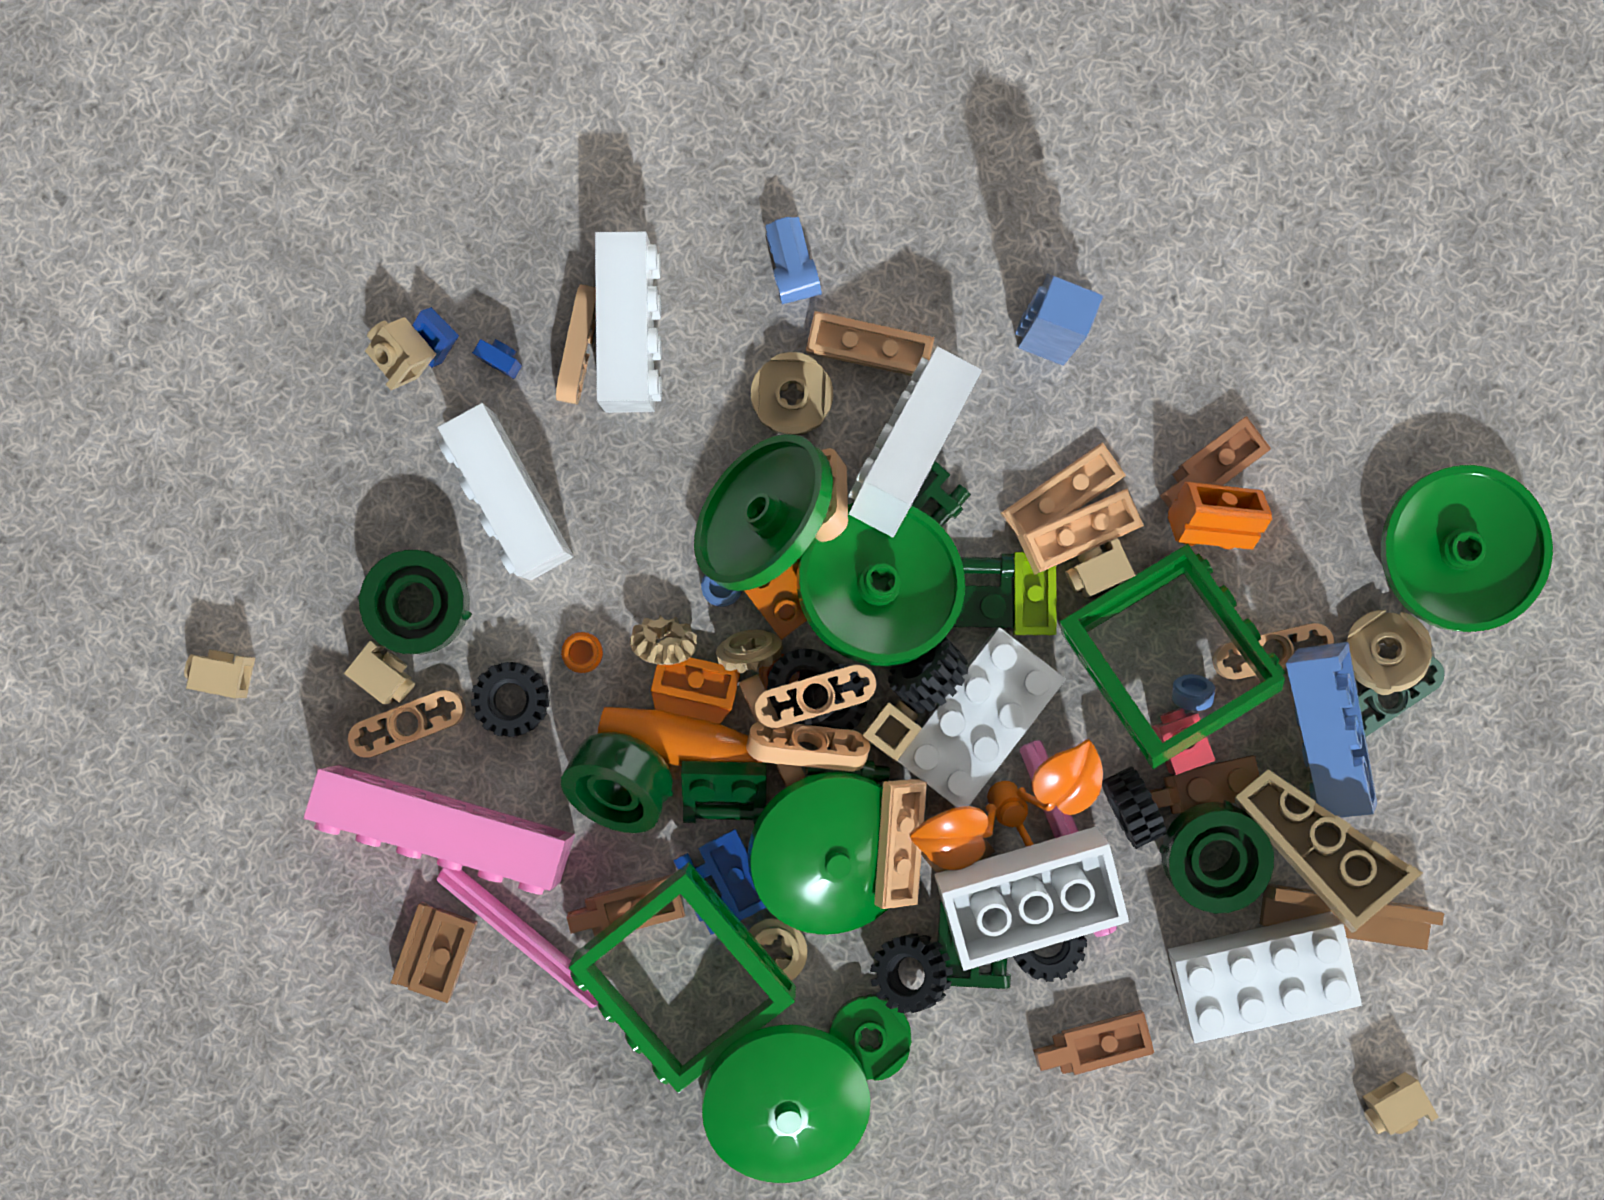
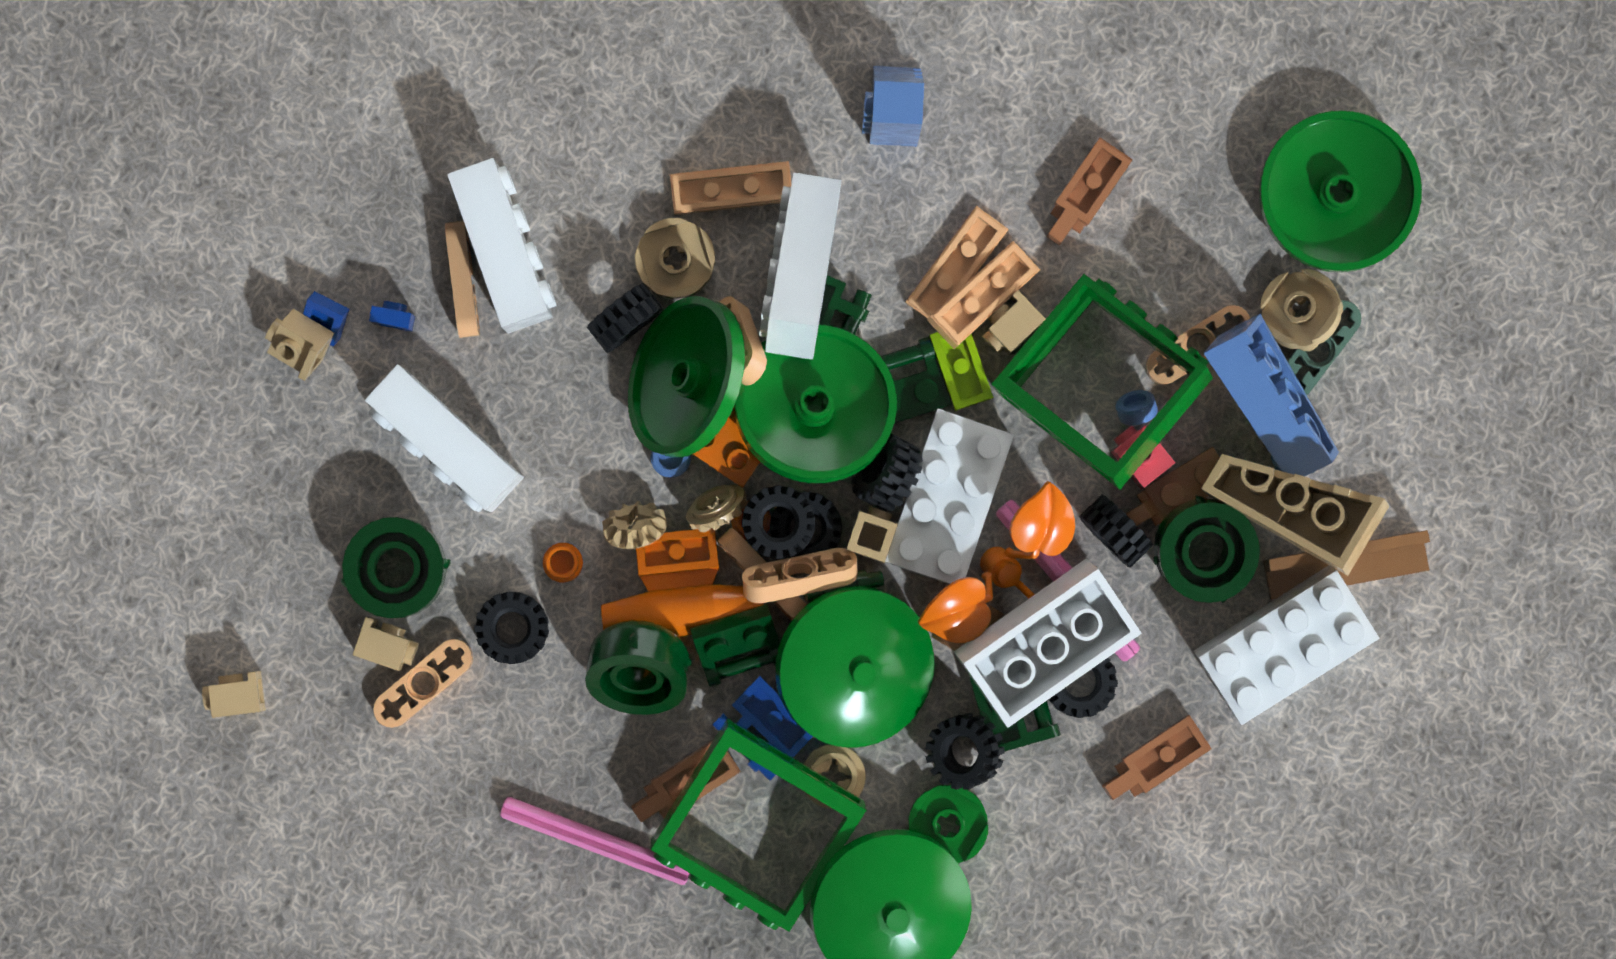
camera: 25 degrees left, 0 degrees up
(434, 952) = (521, 883): medium nougat plate -> none
(438, 827) = (489, 764): bright pink brick -> none
(723, 434) = (624, 317): none -> black tyre
(794, 269) = (637, 141): medium blue piece -> none
(843, 677) = (810, 501): light nougat beam -> none
(897, 855) = (915, 646): light nougat tile -> none
(1219, 516) = (1104, 238): orange brick -> none
(1398, 1105) = (1449, 721): tan brick -> none

